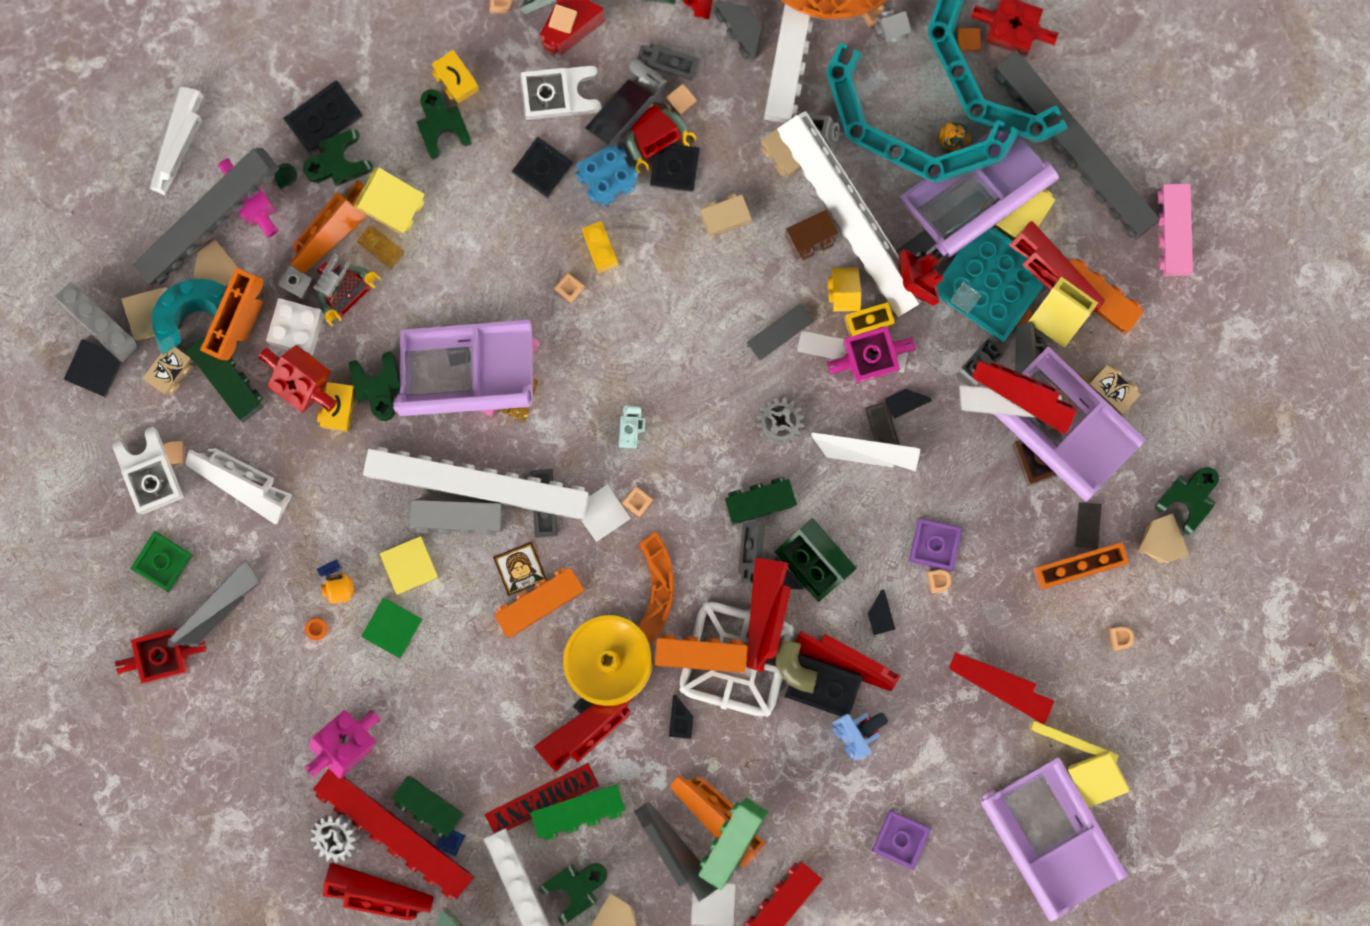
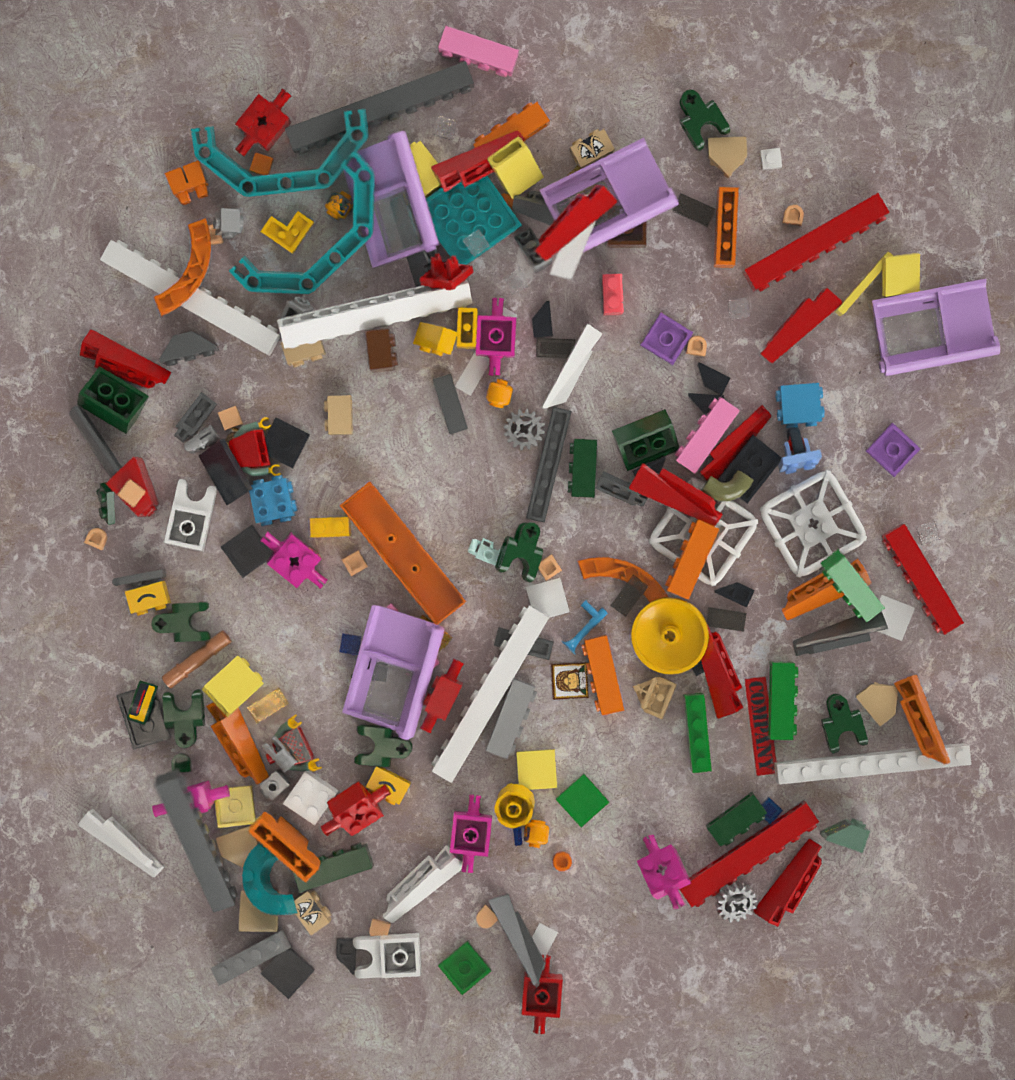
camera: 75 degrees left, 5 degrees up
(135, 426) = (346, 953): none -> black tile
(222, 638) = (544, 938): none -> white sticker
(225, 565) = (486, 917): none -> light nougat tile
(255, 250) = (237, 808): none -> light yellow tile
(300, 509) = (460, 840): none -> dark pink brick
(338, 109) = (142, 702): none -> slope
(372, 550) = (514, 795): none -> yellow brick
(405, 152) = (196, 659): none -> nougat piece
(455, 433) = (443, 697): none -> red brick
(470, 59) = (137, 579): none -> dark grey hinge
(478, 312) = (350, 644): none -> clear blue tile
(510, 729) = (697, 732): none -> green brick
(535, 669) = (655, 695): none -> tan slope
(563, 214) = (295, 572): none -> dark pink brick
(598, 335) = (403, 553): none -> orange piece
(600, 574) = (593, 622): none -> dark azure piece
(637, 600) = (629, 595): none -> clear smoke tile
(647, 718) = (726, 619): none -> clear smoke tile
(649, 464) = (524, 548): none -> dark green piece
(751, 462) = (548, 464): none -> dark grey tile
(788, 763) = (801, 519): none -> white plate
(810, 381) = (499, 393): none -> light orange head
(843, 624) = (707, 434): none -> bright pink brick
(902, 97) = (288, 236): none -> yellow plate
(908, 611) = (713, 379): none -> black tile
(914, 716) = (800, 404): none -> dark azure brick
(962, 467) = (612, 294): none -> coral brick
(1100, 672) = (815, 242): none -> red brick
(1174, 591) = (770, 159): none -> white plate

